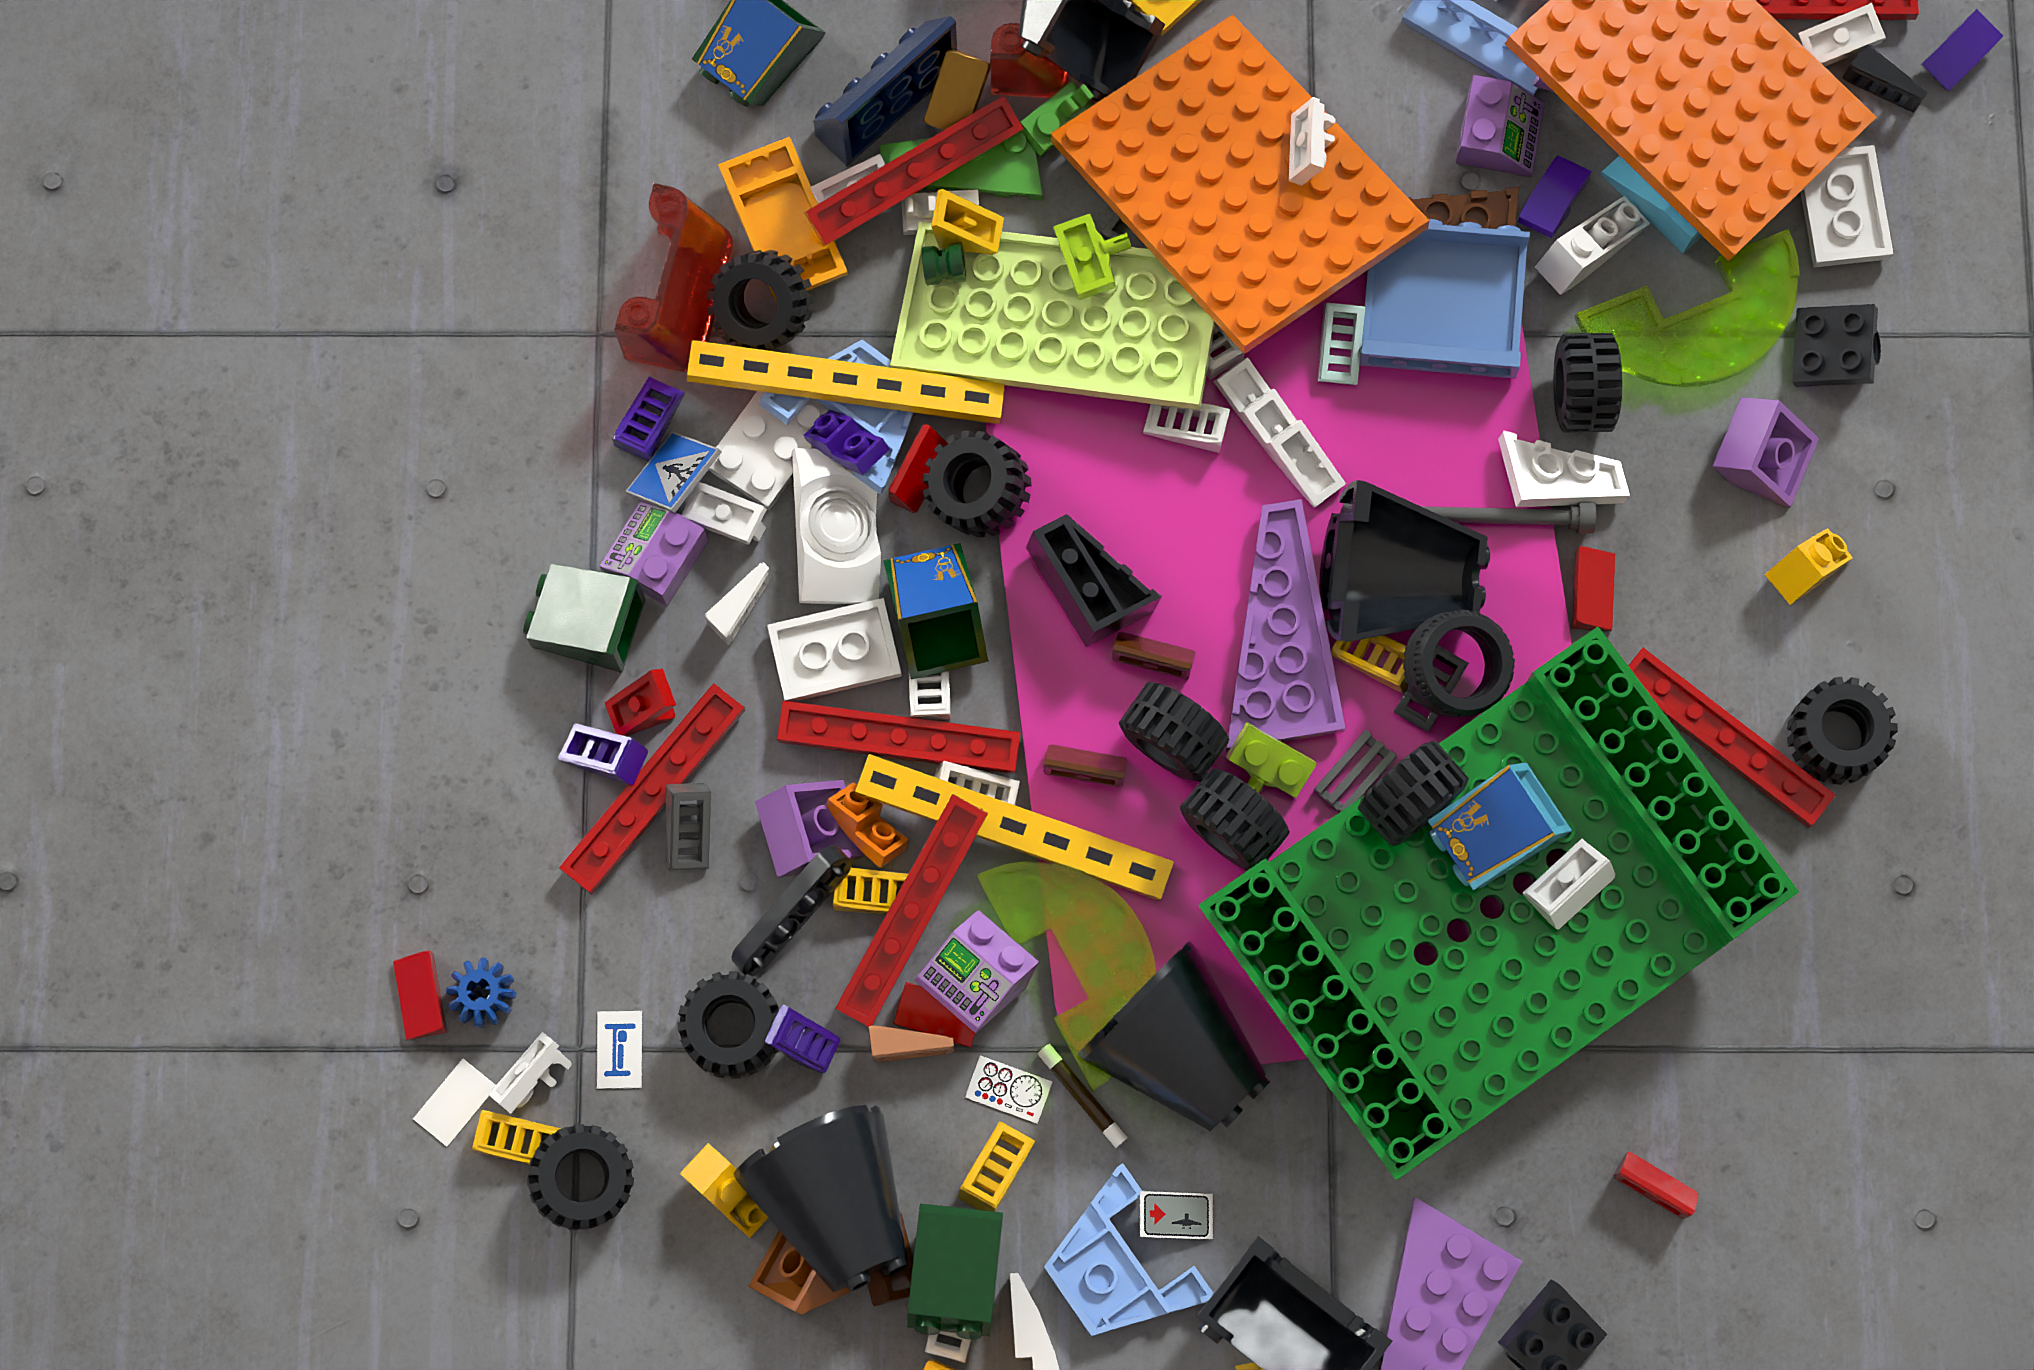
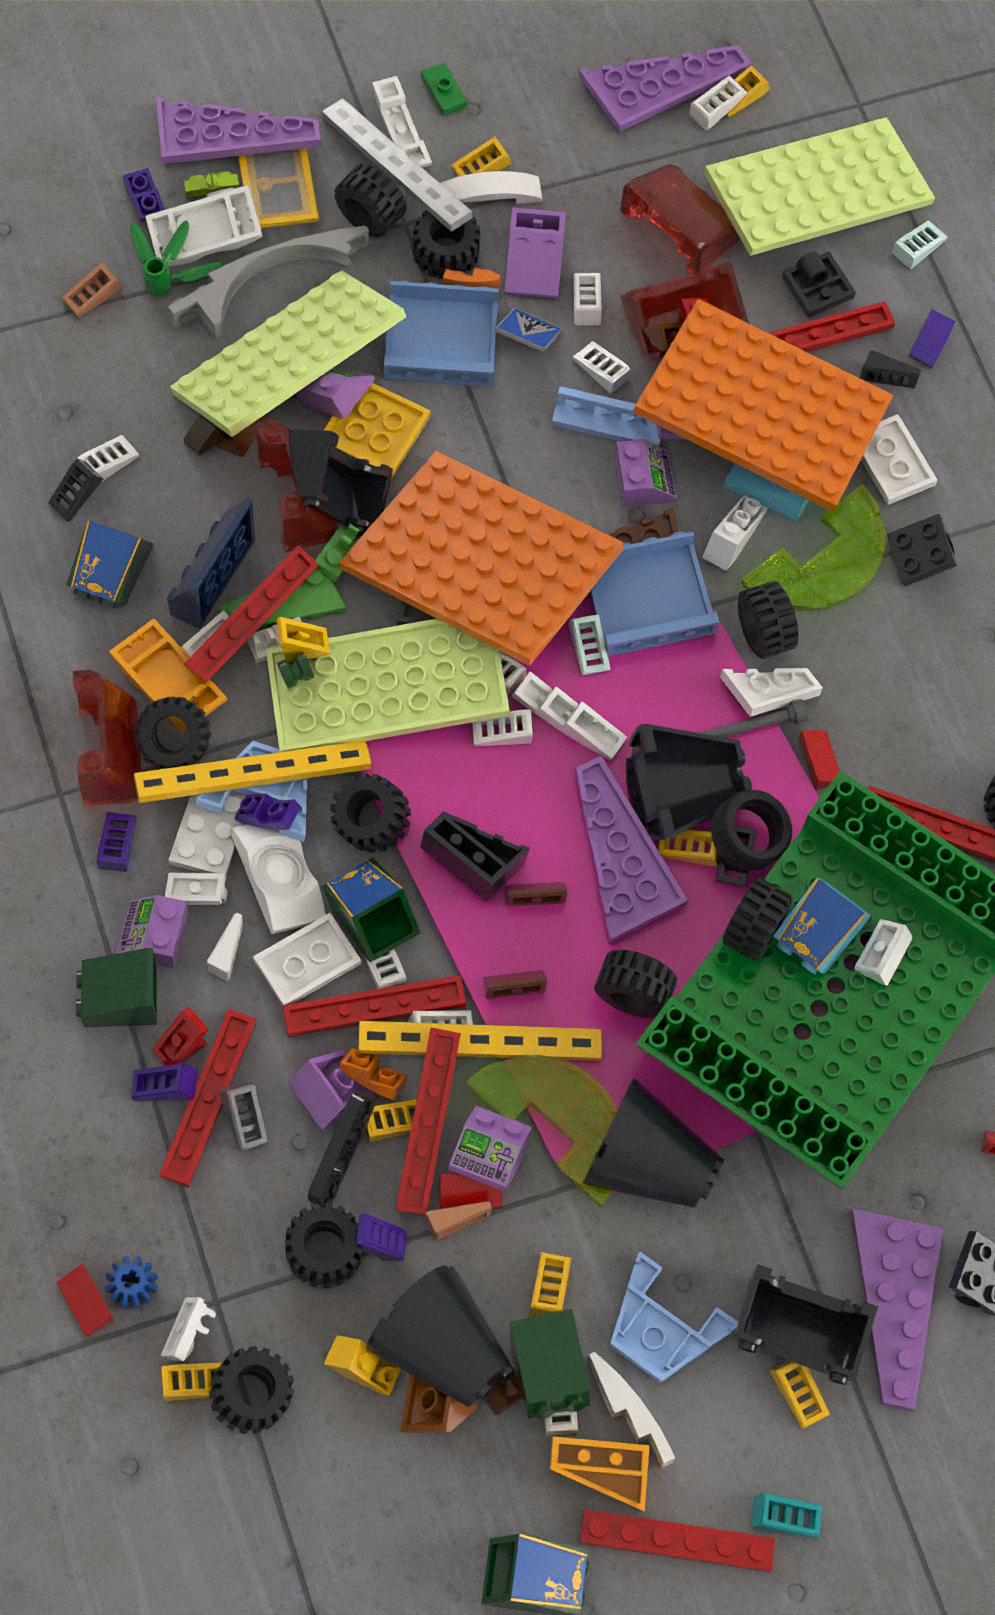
camera: 25 degrees left, 10 degrees down
(454, 1102) = (136, 1370): white sticker -> none
(619, 1049) = (246, 1292): white sticker -> none
(673, 472) = (149, 870): piece -> none
(907, 485) = (321, 828): red slope -> none
(956, 89) = (263, 552): pearl gold slope -> none
(1008, 1089) = (538, 1228): white sticker -> none
(1082, 1095) = (593, 1215): dark brown bar -> none
(1088, 255) = (396, 634): lime plate -> none
(1174, 731) = (571, 936): black tyre -> none
(1176, 1215) = (690, 1276): sticker -> none
(1270, 761) = (644, 937): lime plate -> none
(1309, 141) = (522, 513): white plate -> none
(1377, 747) = (712, 908): dark grey tile -> none
(1553, 196) = (698, 507): dark purple slope -> none
(1766, 450) = (901, 631): medium lavender slope -> none
(1809, 565) = (959, 698): yellow slope -> none
(1843, 35) = (852, 349): white plate -> none

